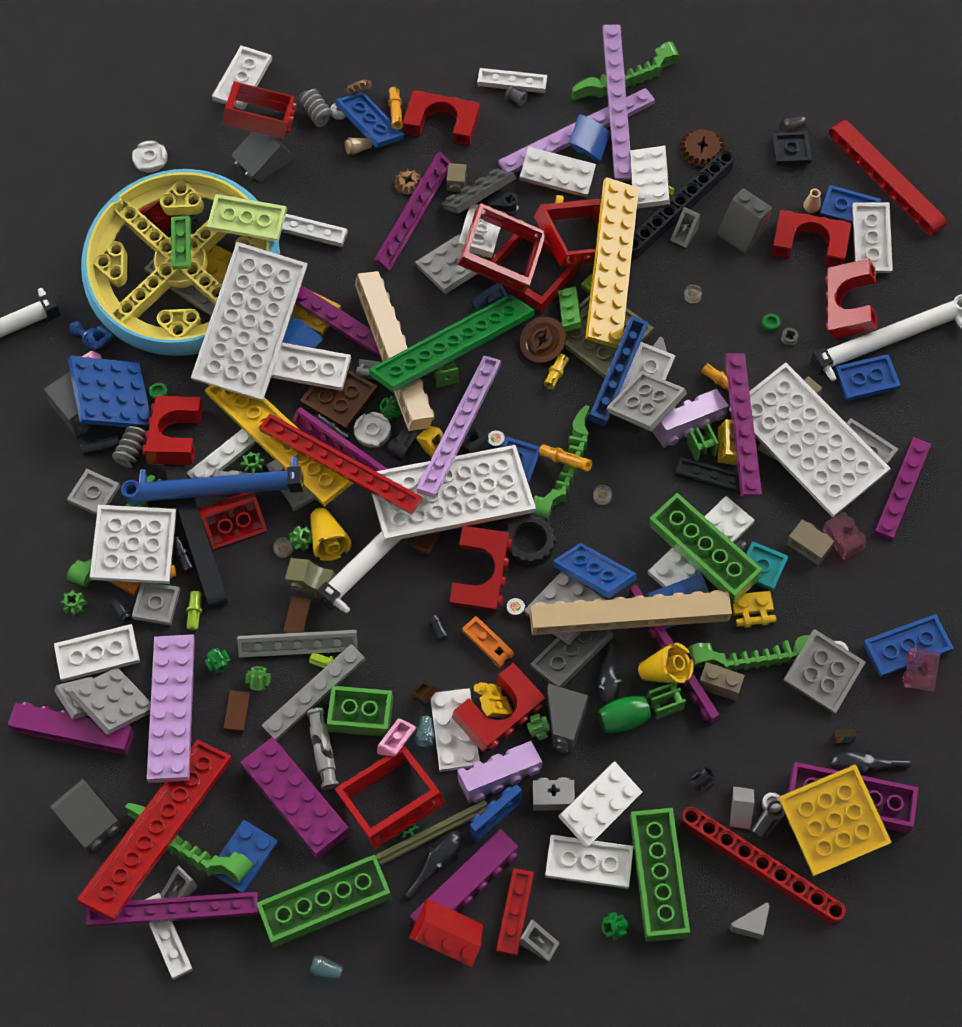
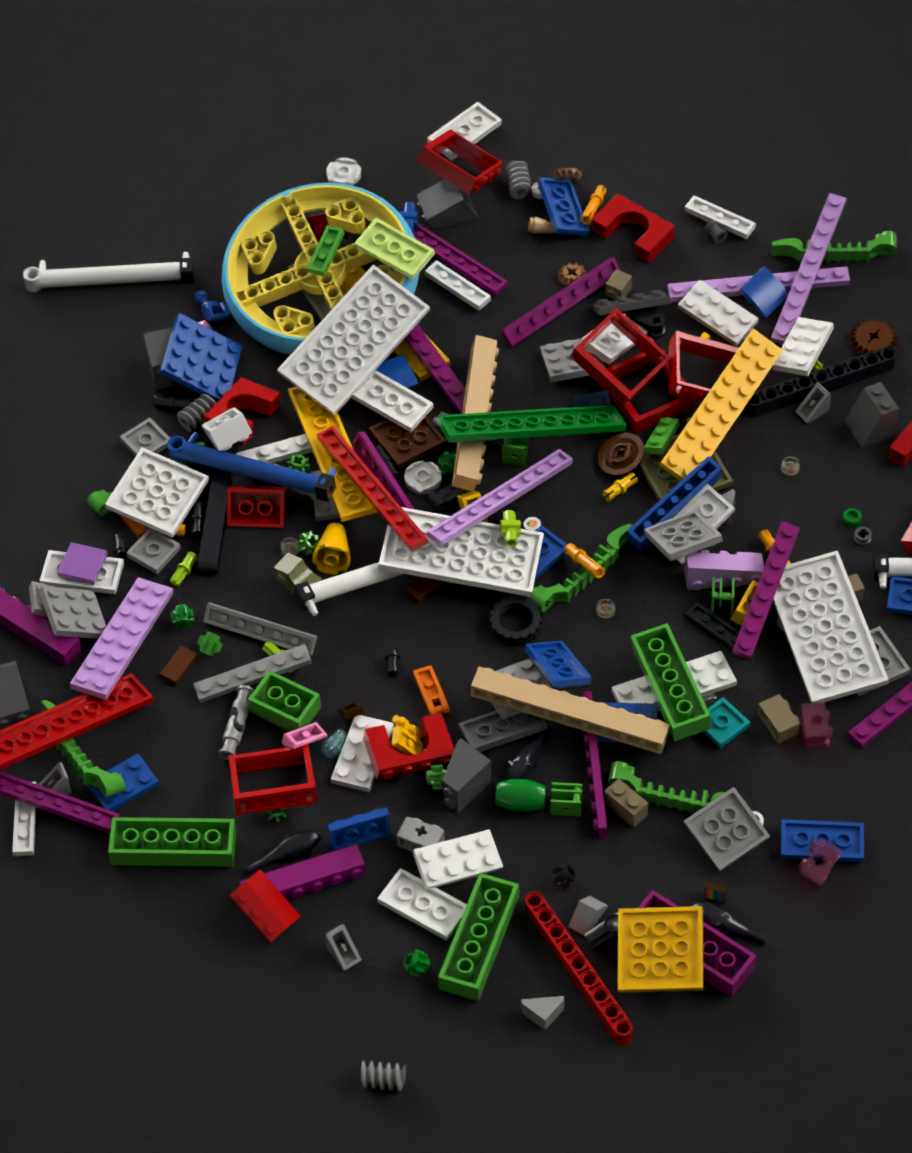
camera: 25 degrees right, 10 degrees down
(73, 602) = (82, 523): bright green gear -> none
(94, 645) = (82, 563): none -> medium lavender tile
(157, 389) = (248, 374): green tile -> none
(174, 456) = (227, 429): none -> white slope
(234, 175) = (410, 215): none -> blue axle
(295, 798) = (191, 752): magenta brick -> none
(297, 615) = (273, 606): reddish brown tile -> none
(302, 205) = (461, 262): none -> magenta plate
(325, 968) = (144, 895): clear light blue cone -> none
(431, 833) = (281, 828): olive axle -> none
(486, 453) = (510, 528): none -> lime axle
(487, 595) = (452, 651): red arch -> none
(499, 772) = (398, 798): lavender wedge -> none
(515, 607) = (469, 672): tile -> none
(515, 912) = (336, 915): red plate -> none
(667, 665) = (581, 765): yellow cone -> none
(752, 604) = (693, 751): yellow plate -> none

